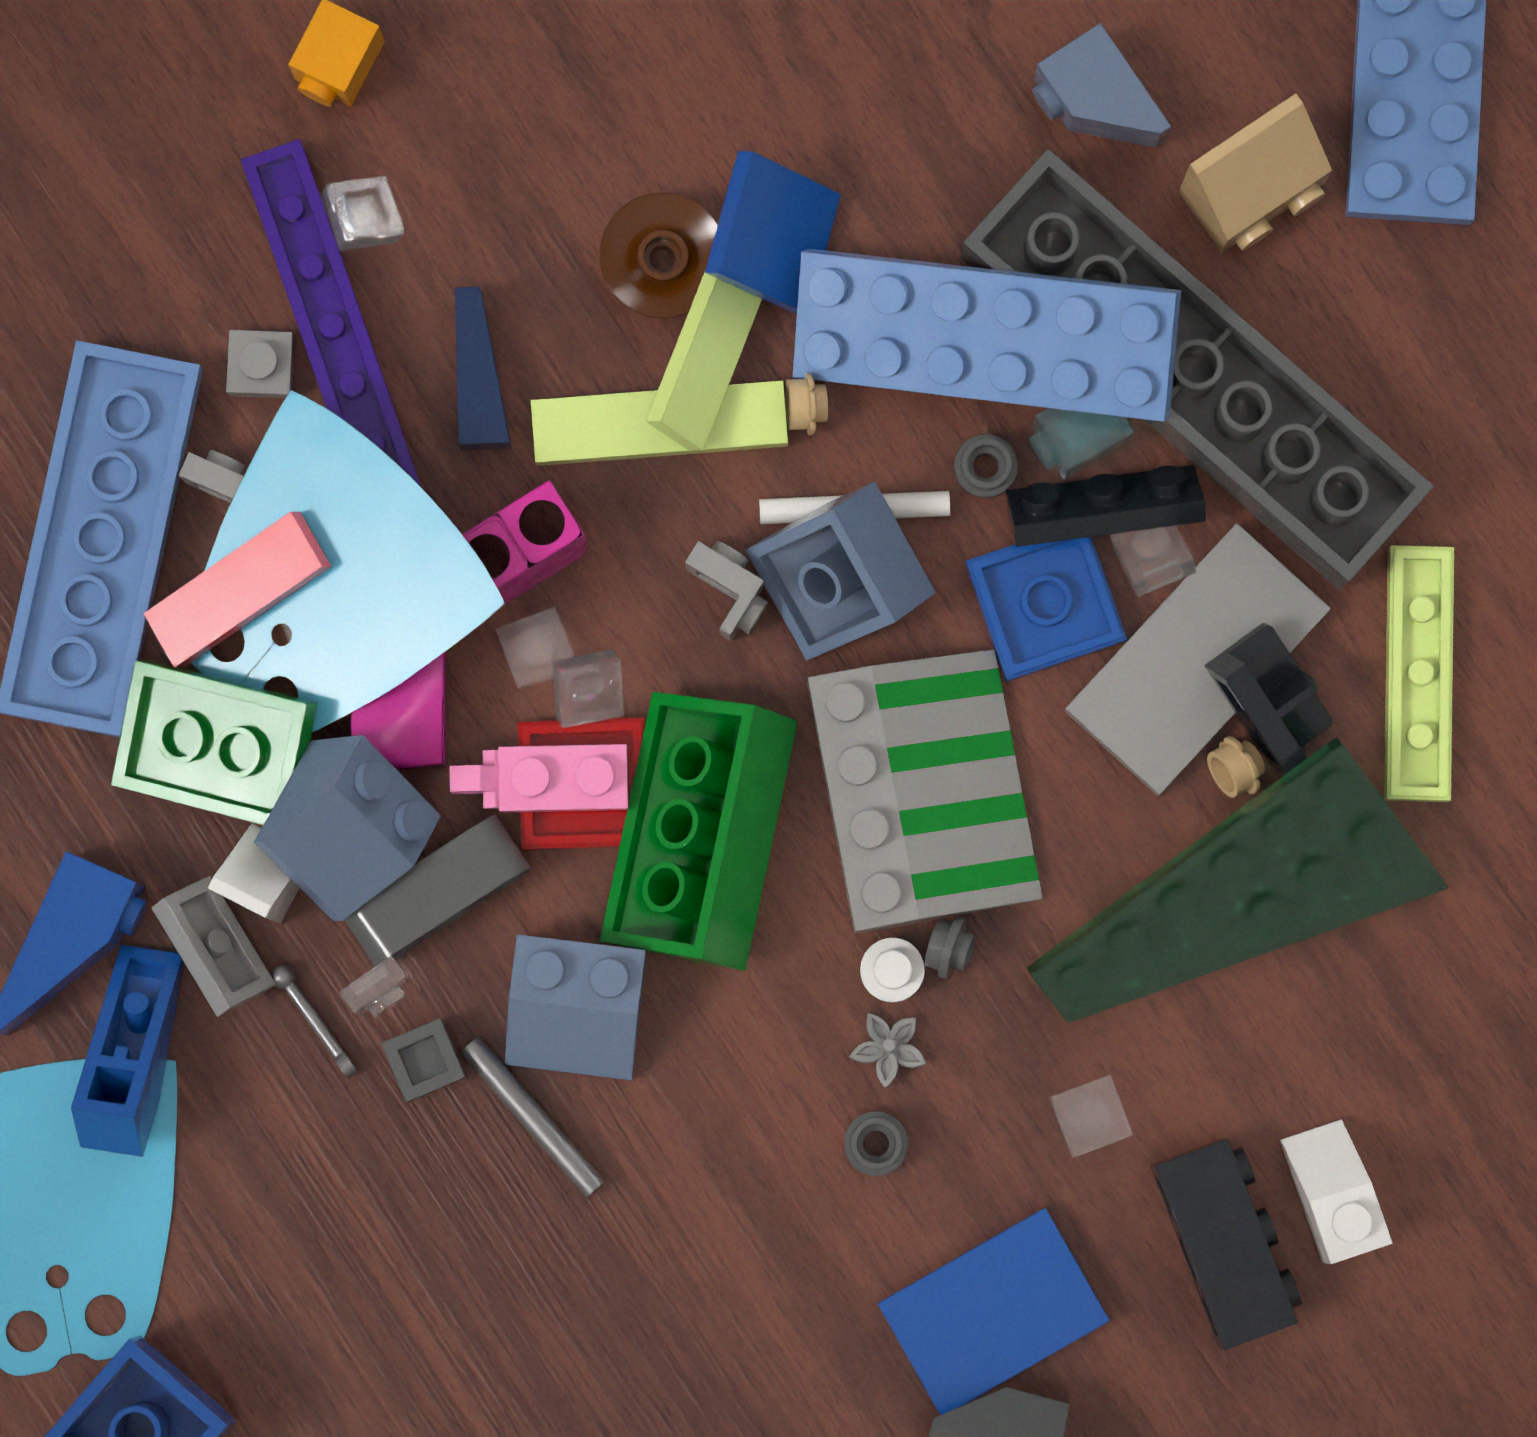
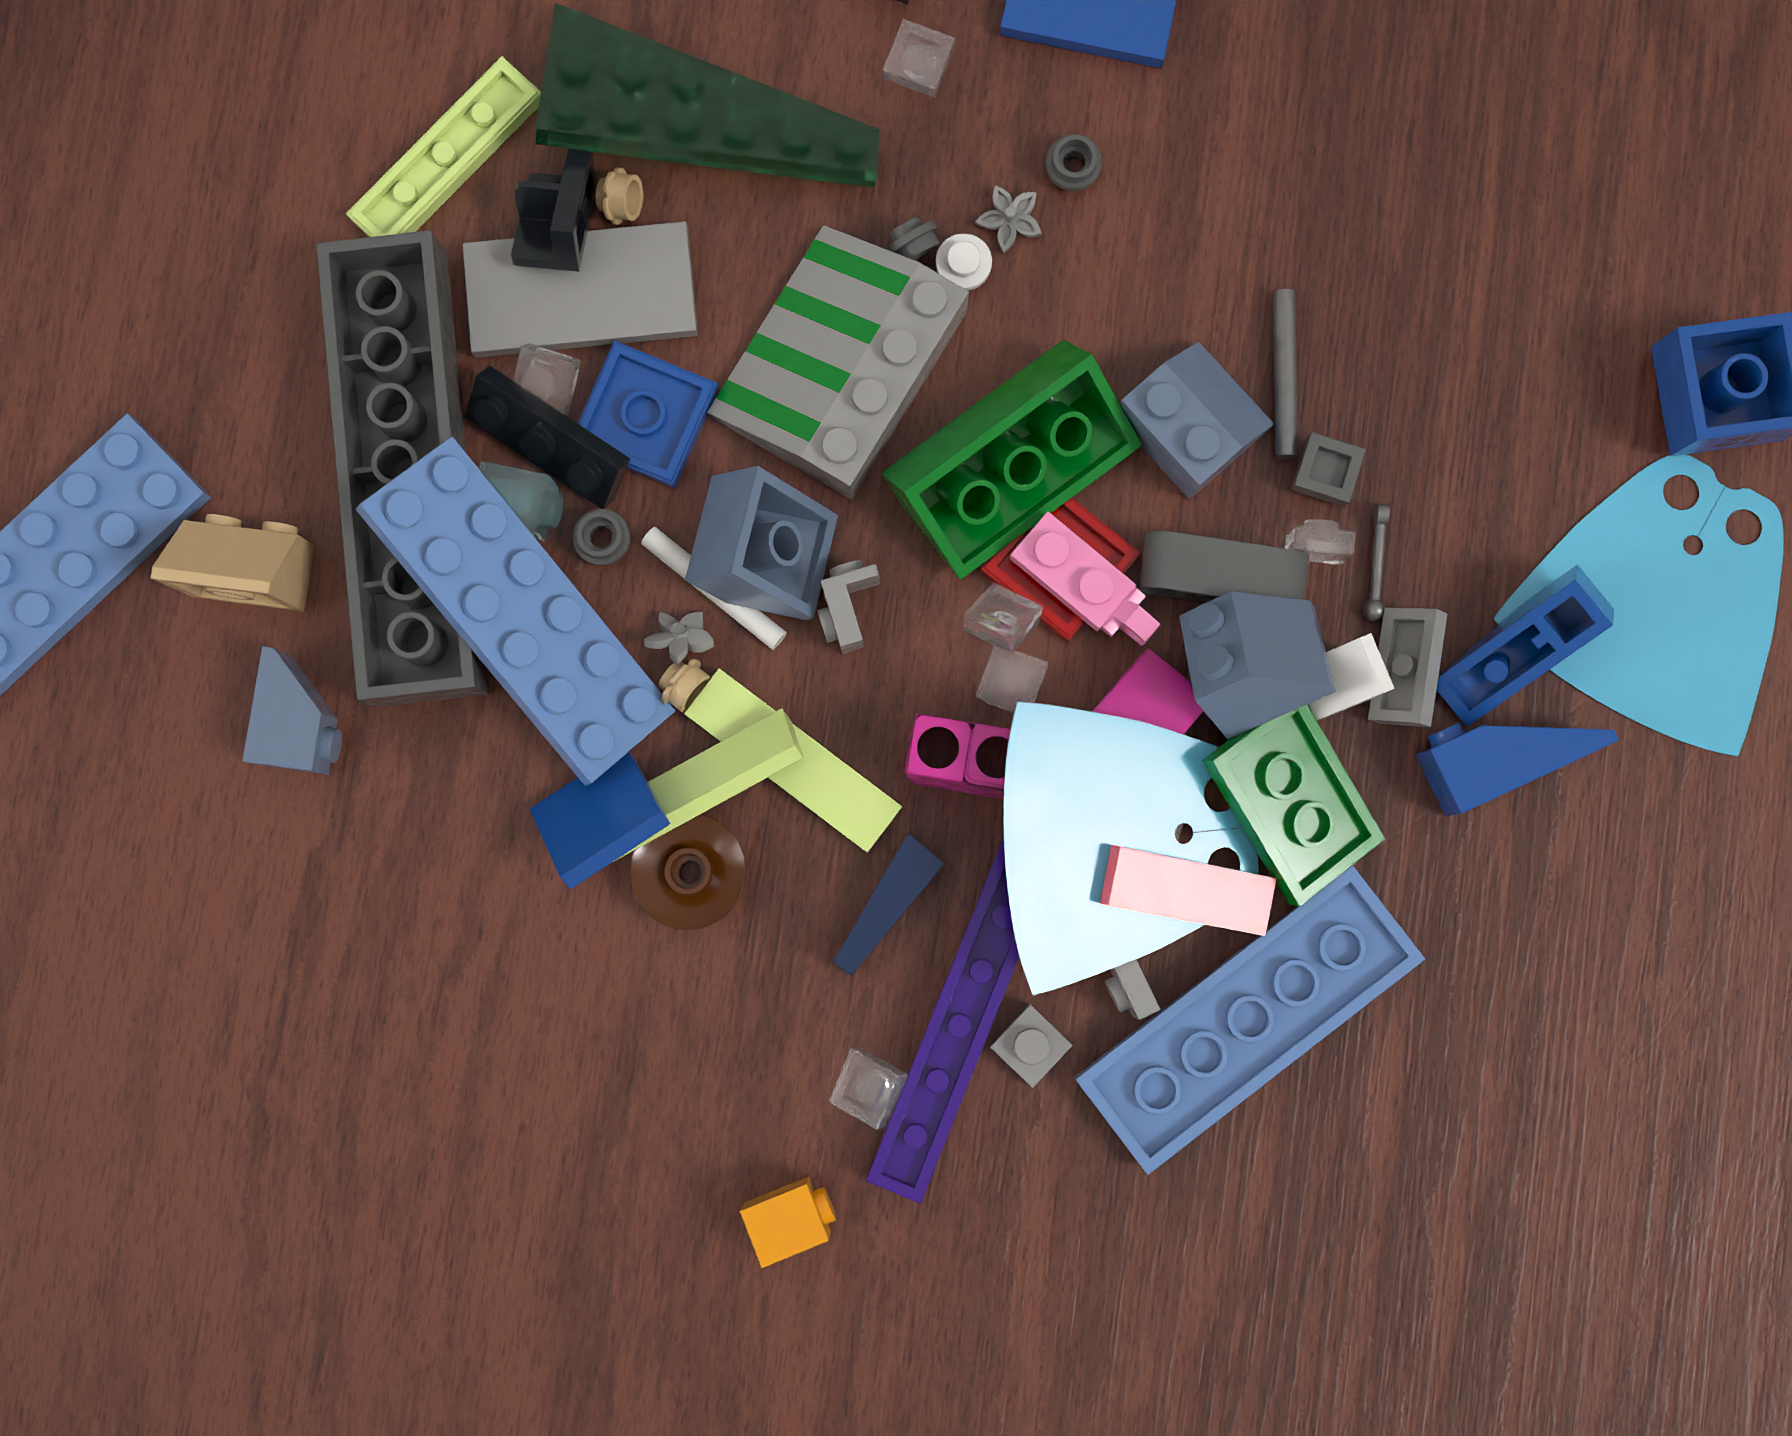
camera: 140 degrees left, 0 degrees up
(844, 441) = (680, 636): none -> light grey plant

